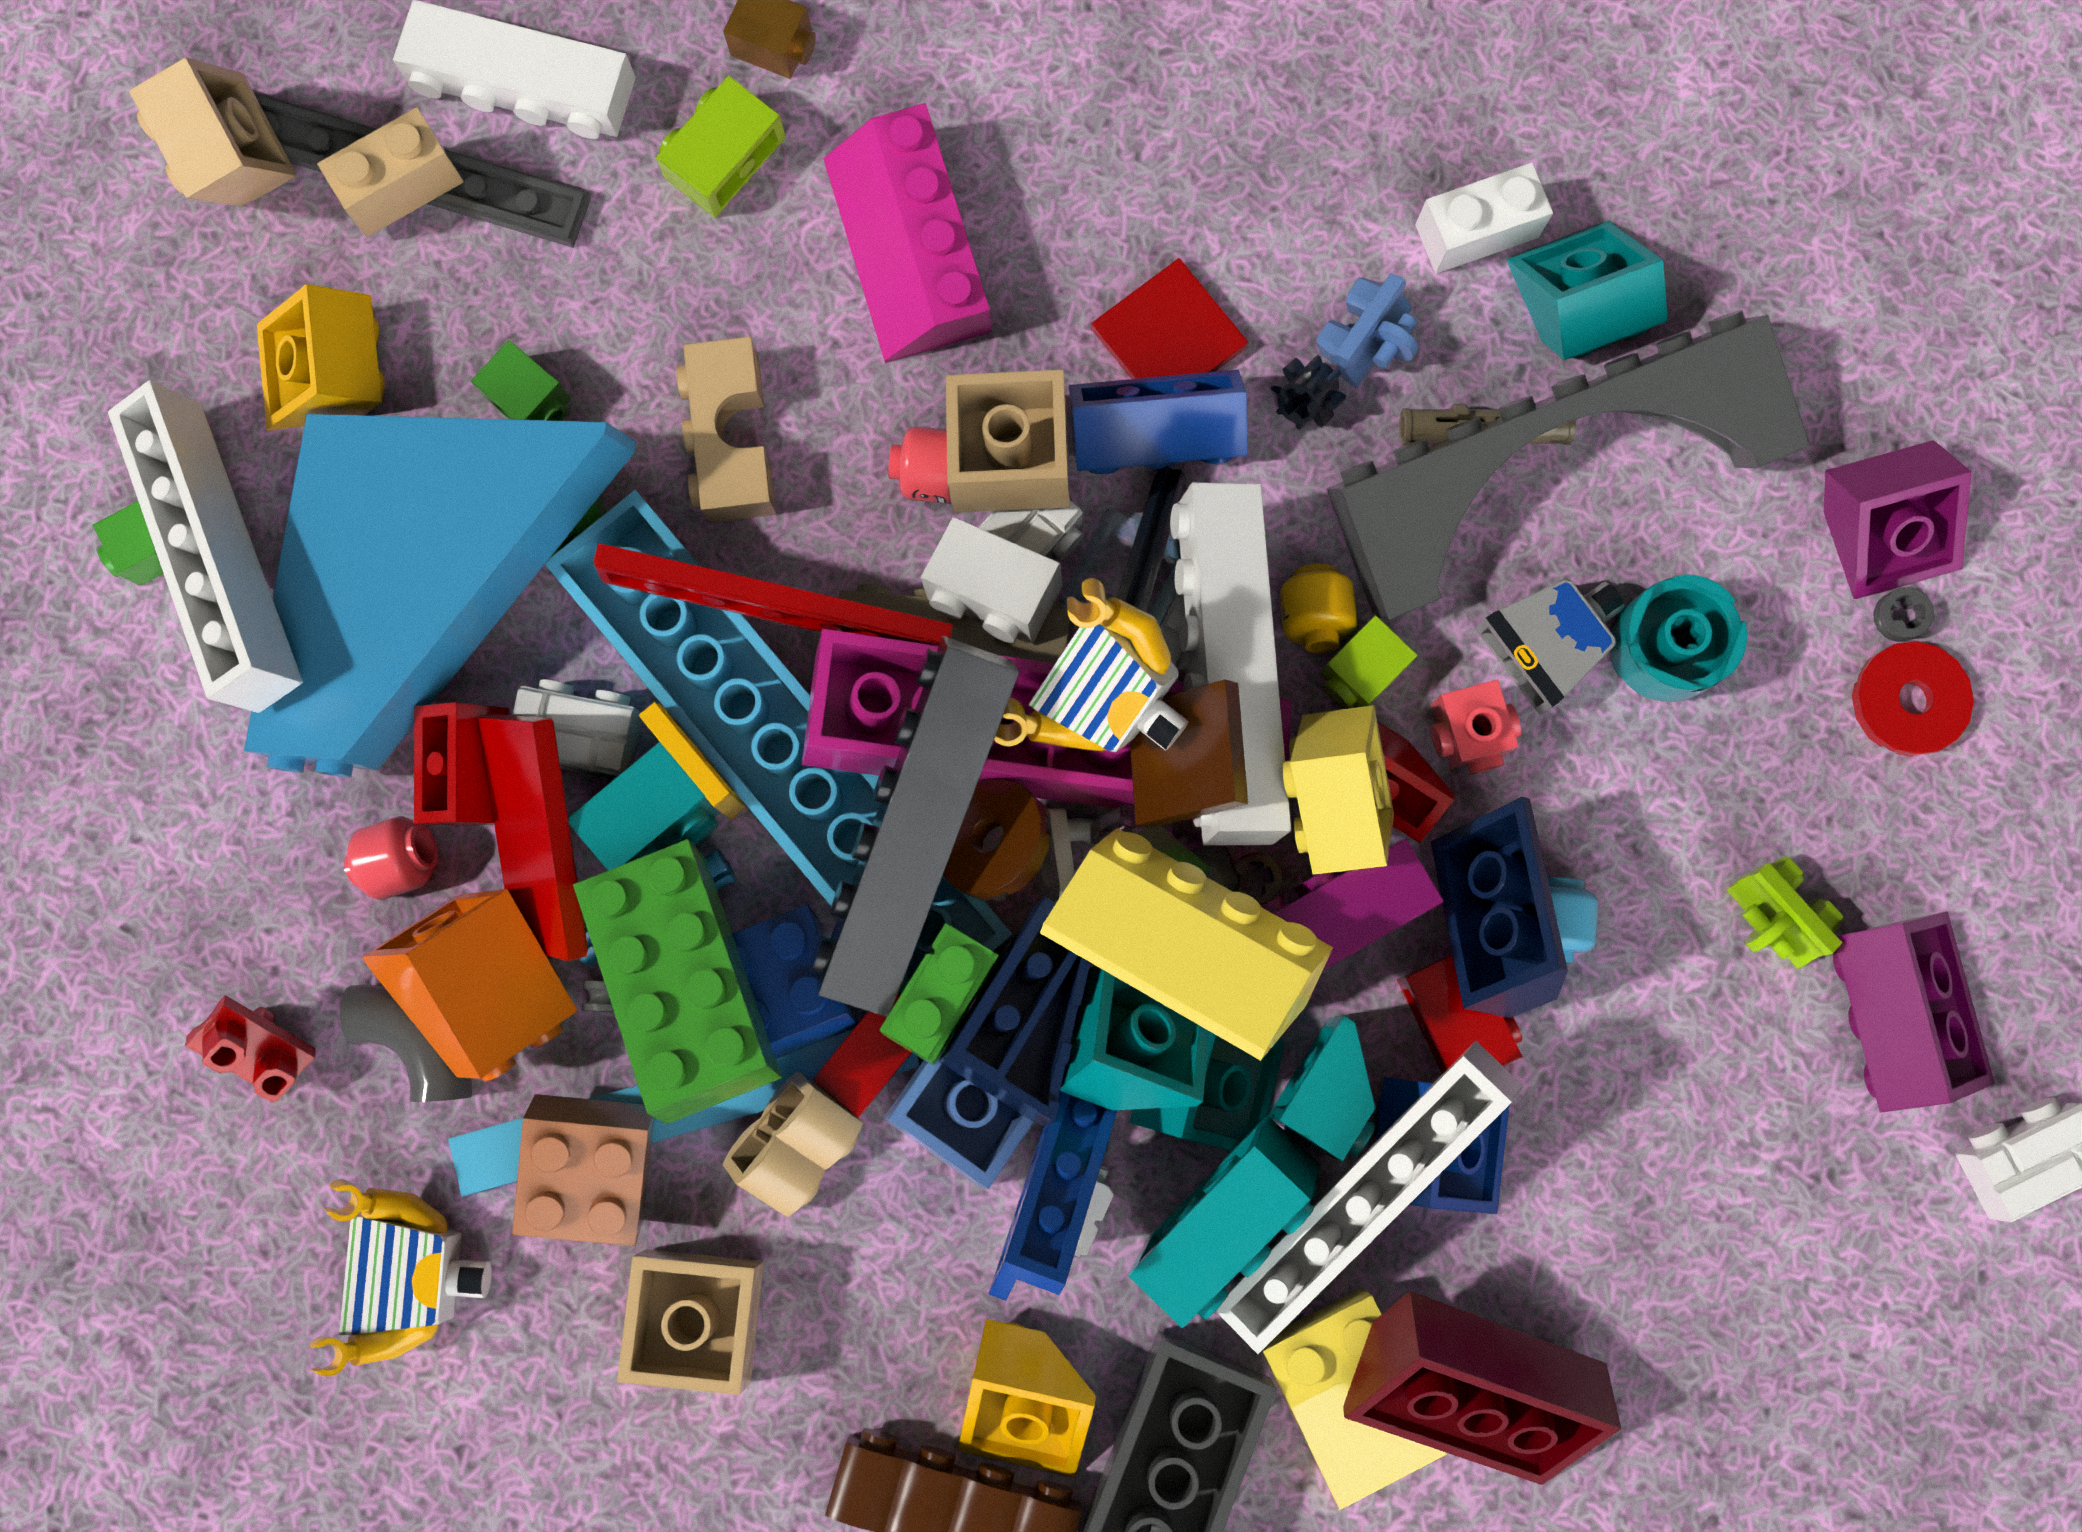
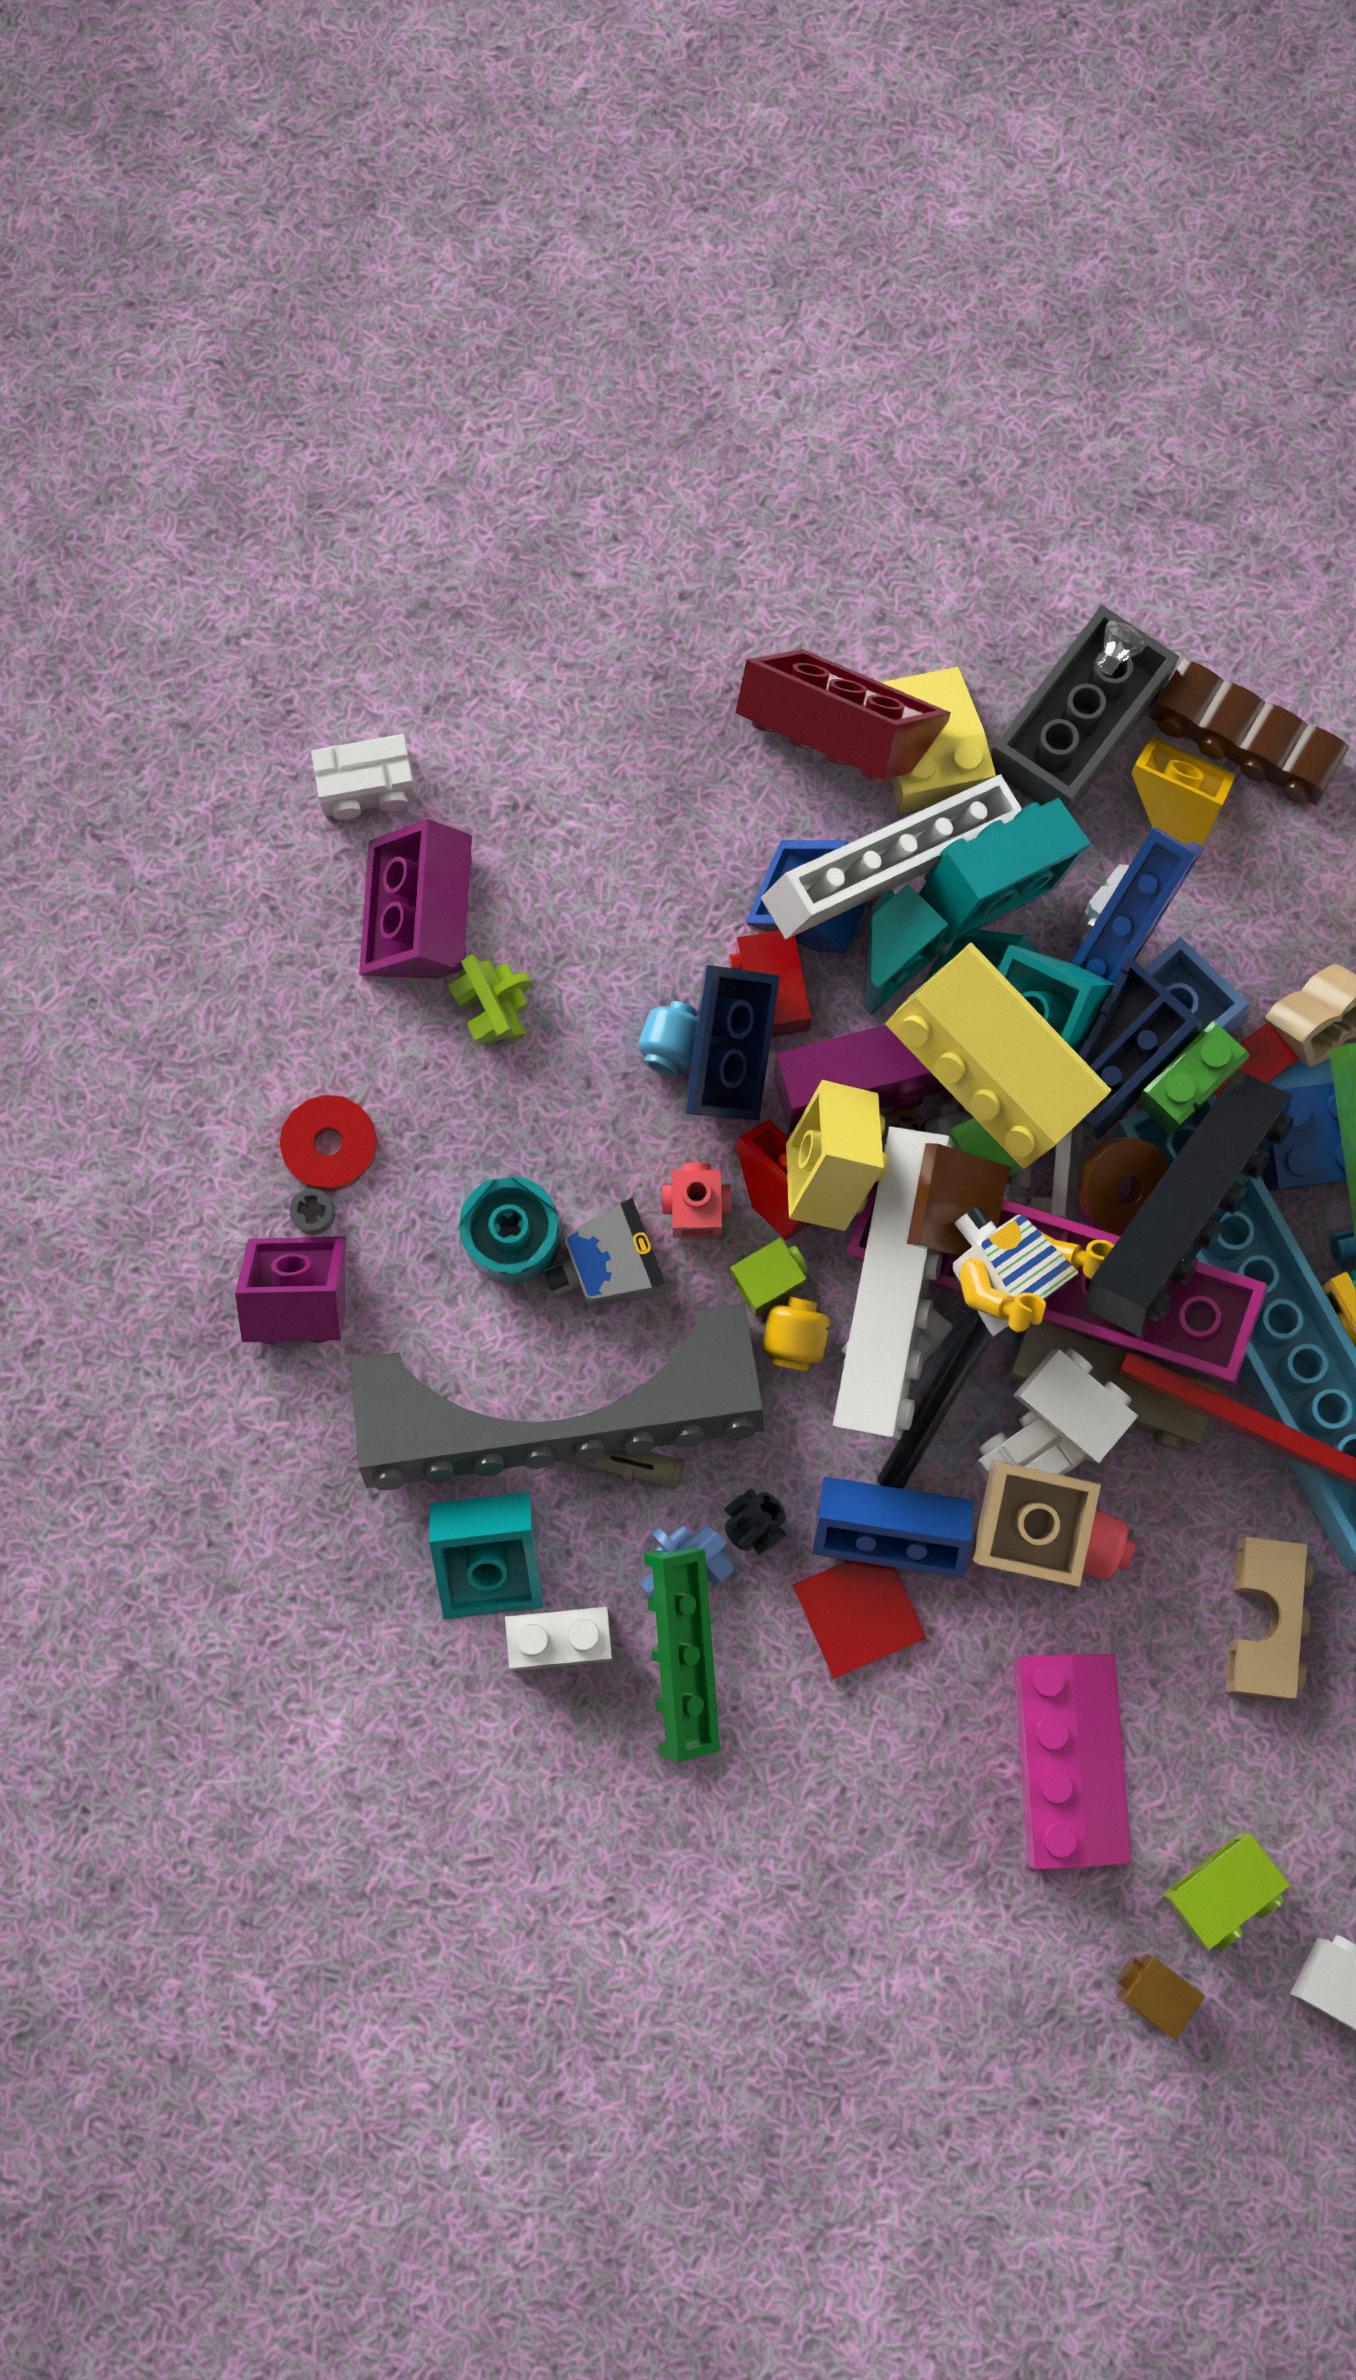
camera: 165 degrees left, 5 degrees down
(1350, 231) = (684, 1653): none -> green hinge

